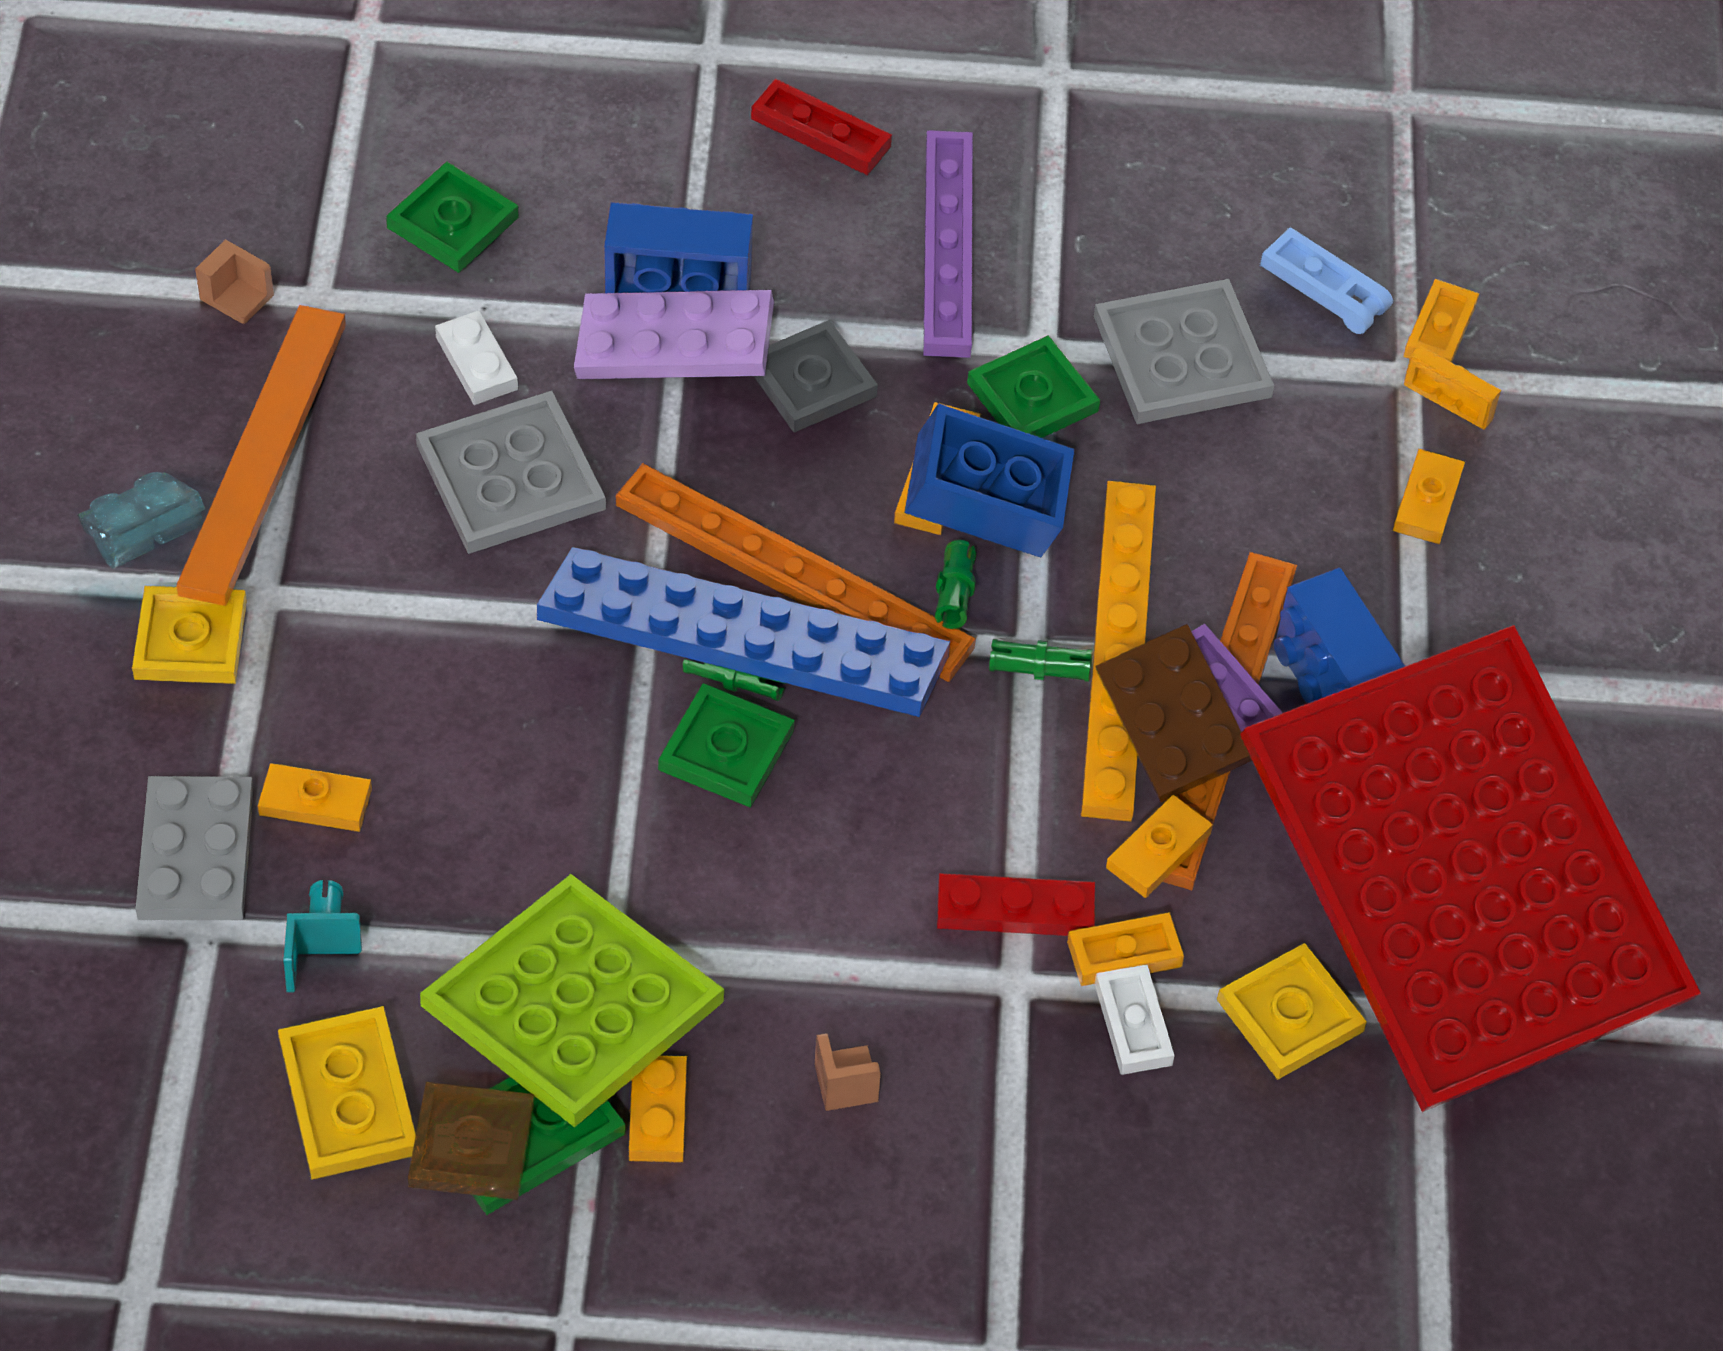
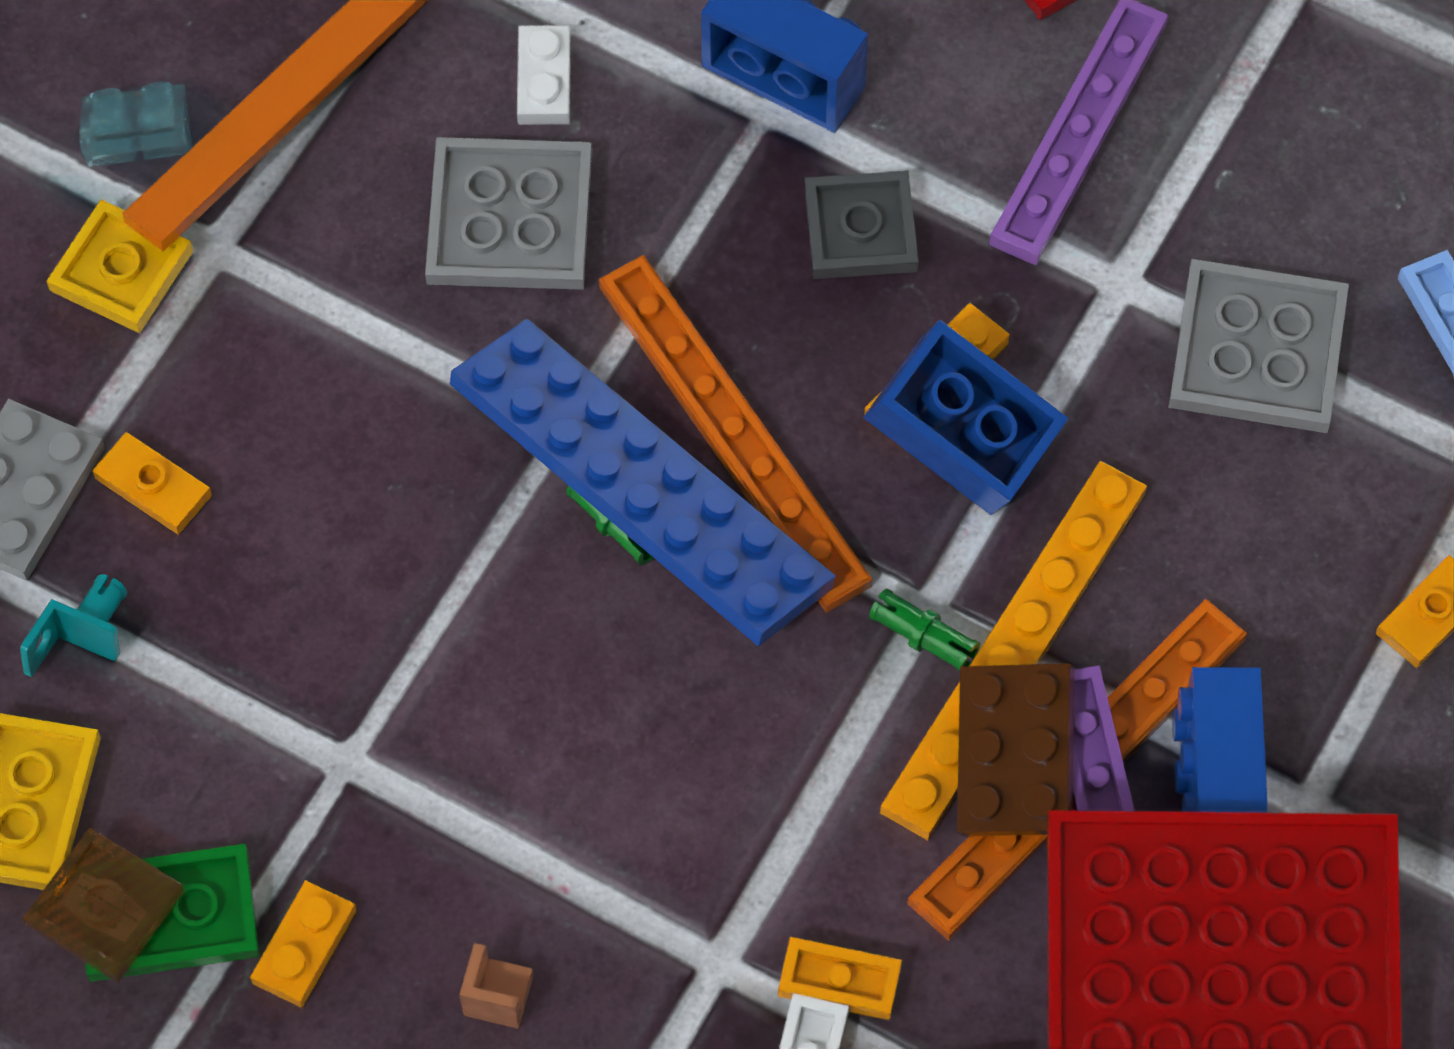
camera: 30 degrees right, 10 degrees up
(572, 999) = (273, 800): lime plate -> none
(674, 334) = (746, 127): lavender plate -> none
(726, 745) = (564, 592): green plate -> none
(955, 584) = (880, 513): green pin -> none
(1014, 904) = (760, 882): red plate -> none
(1034, 389) = (1077, 330): green plate -> none
(1159, 846) = (930, 884): light orange plate -> none

